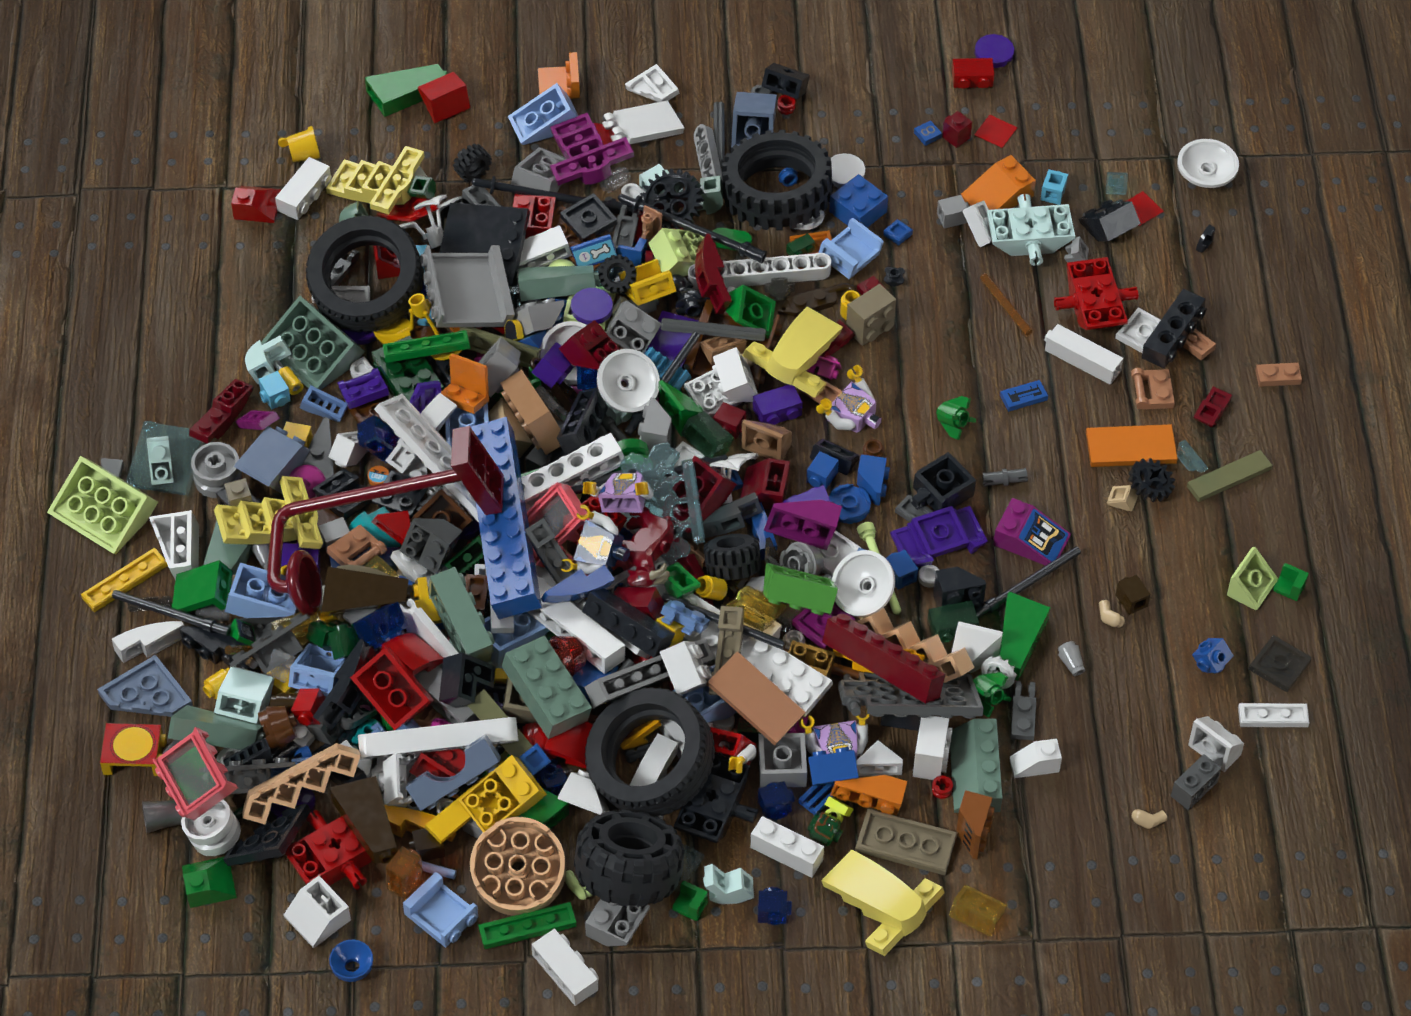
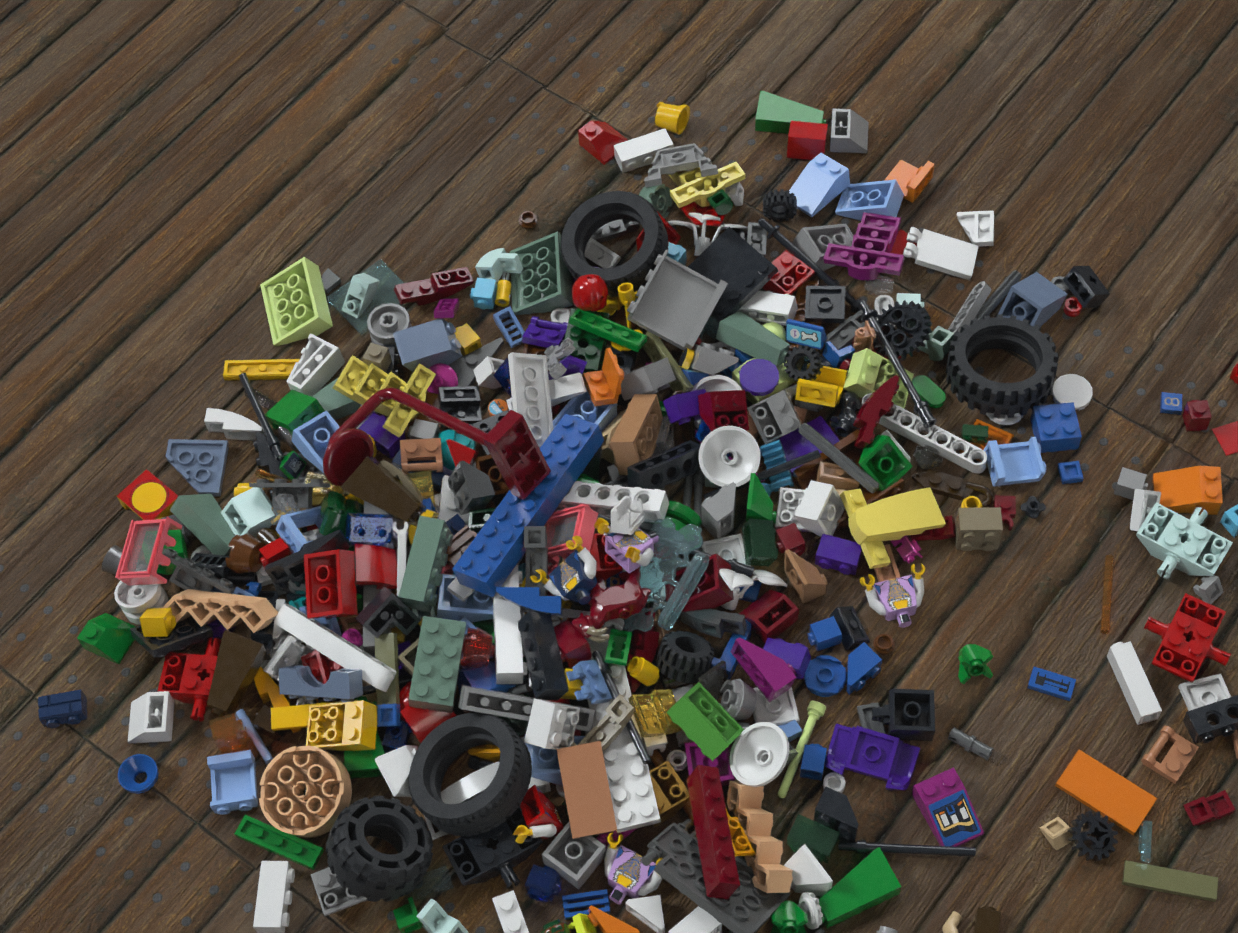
camera: 45 degrees right, 5 degrees up
(226, 962) = (62, 708): none -> dark blue brick
(251, 307) = (528, 220): none -> reddish brown plate
(253, 829) = (157, 622): none -> yellow brick
(352, 172) = (678, 159): none -> light grey wing
(384, 324) = (590, 293): none -> red piece
(420, 399) = (556, 352): none -> light grey plant
(473, 70) = (848, 132): none -> light grey slope
(489, 124) = (819, 184): none -> light blue slope
(603, 471) = (626, 518): none -> white hinge
(788, 176) = (1019, 368): blue plate -> none
(833, 767) = (602, 891): blue brick -> none

